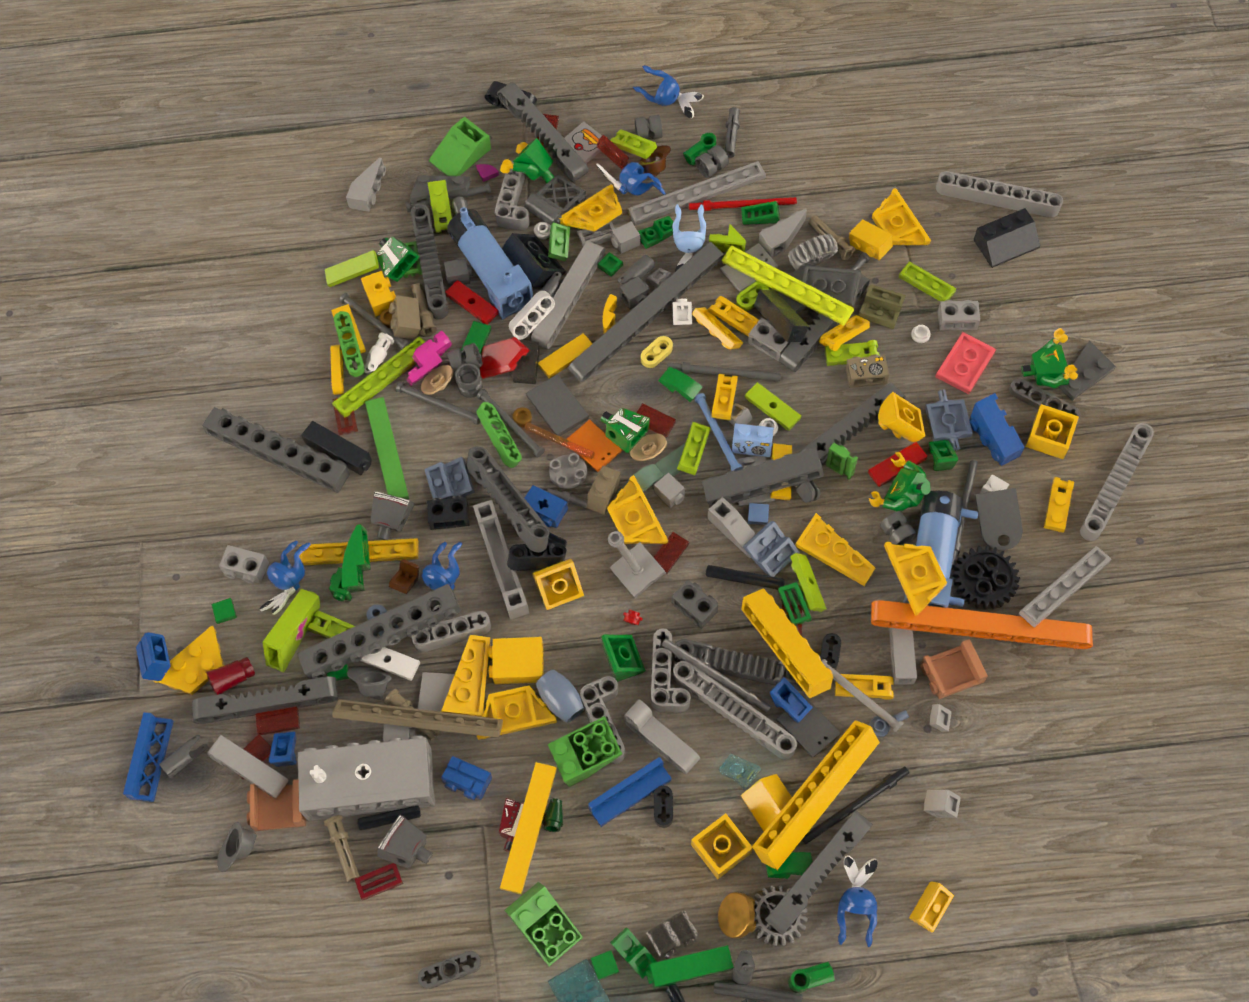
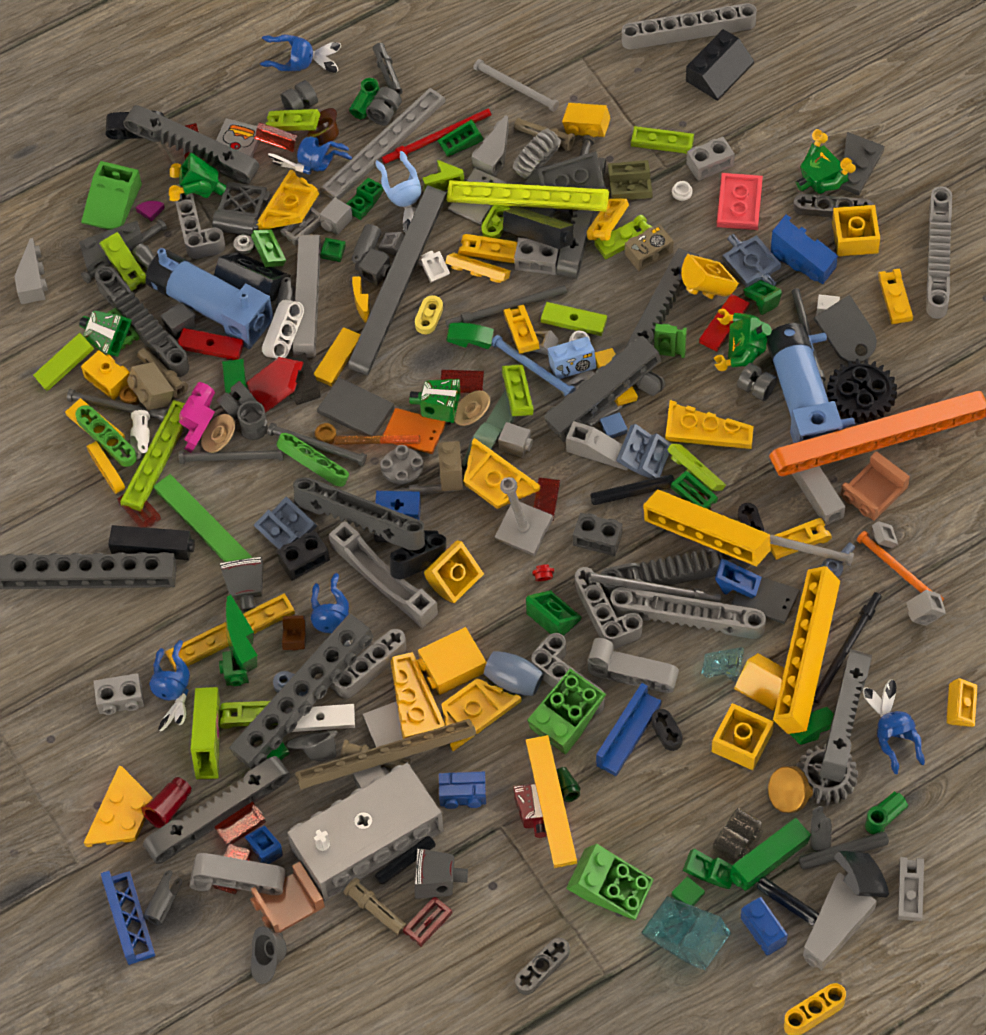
camera: 25 degrees left, 5 degrees down
(153, 656) = (78, 818): blue brick -> none
(224, 610) = (122, 747): green tile -> none
(808, 158) = (480, 66): none -> light grey bar
(899, 221) = (602, 89): yellow wing -> none
(917, 573) = (798, 407): yellow wing -> none
(921, 712) = (894, 564): none -> orange bar
(1064, 586) = (939, 366): light grey tile -> none

